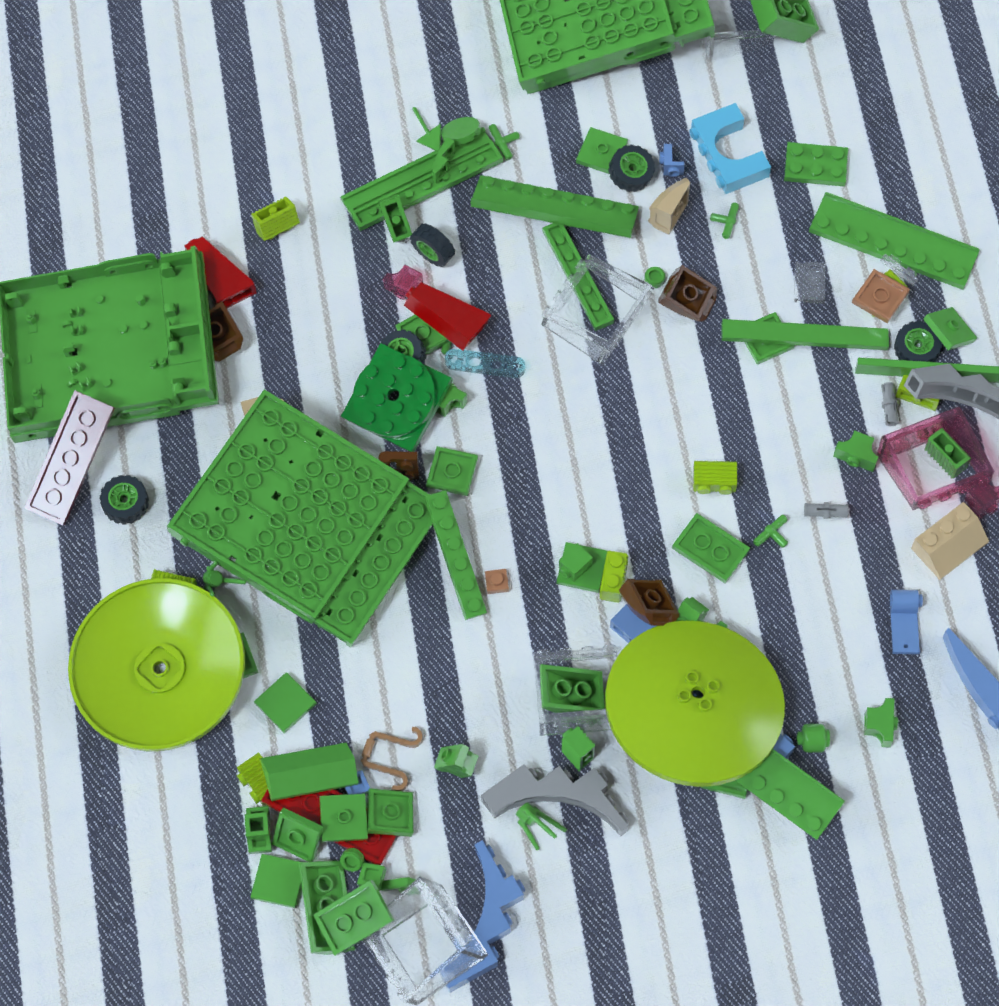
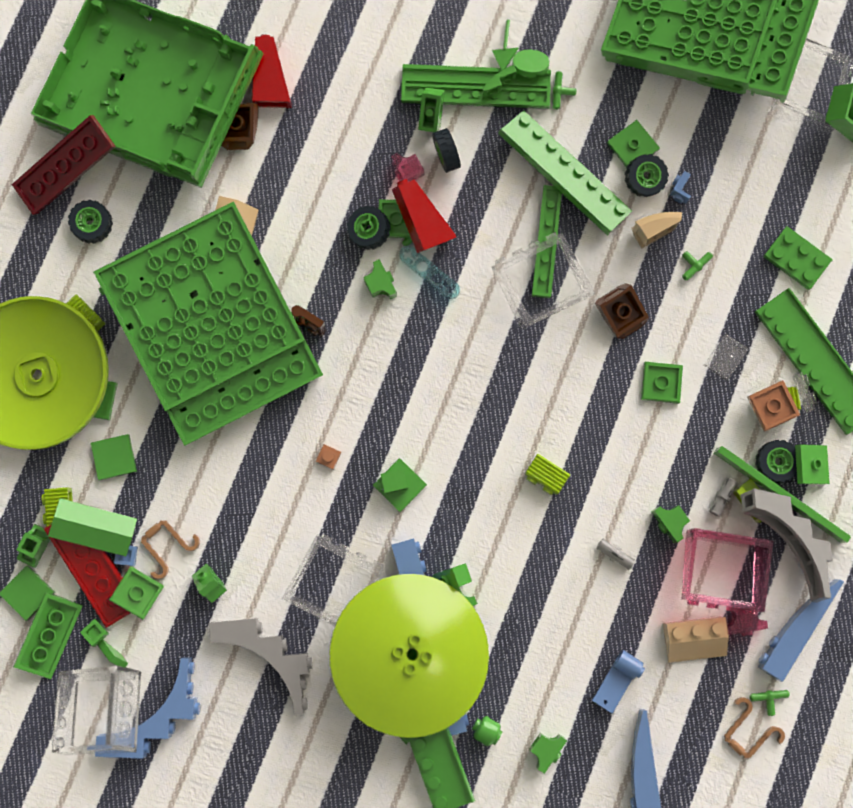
camera: 30 degrees right, 15 degrees up
(214, 578) = (116, 329): bright green plant -> none
(275, 218) = (339, 54): lime brick -> none
(297, 835) = (56, 570): bright green plate -> none
(343, 817) = (97, 578): bright green plate -> none
(352, 859) = (87, 611): bright green tile -> none
(353, 917) = (56, 662): bright green plate -> none
(409, 416) = (357, 274): green piece -> none
(452, 471) = (349, 347): bright green plate -> none
(455, 555) = (307, 419): bright green plate -> none
(530, 816) = (236, 658): bright green plant -> none
(571, 689) = (324, 585): bright green slope -> none
(578, 747) = (303, 630): bright green brick -> none
(613, 576) = (417, 508): lime brick -> none
(649, 601) = (428, 551): reddish brown slope -> none
(655, 276) = (607, 278): bright green tile -> none
(711, 548) = (507, 530): bright green plate -> none
(729, 173) = (722, 226): medium azure arch -> none
(771, 531) = (562, 544): bright green piece -> none
(805, 334) = (693, 399): bright green tile -> none
(947, 453) = (740, 567): bright green brick -> none

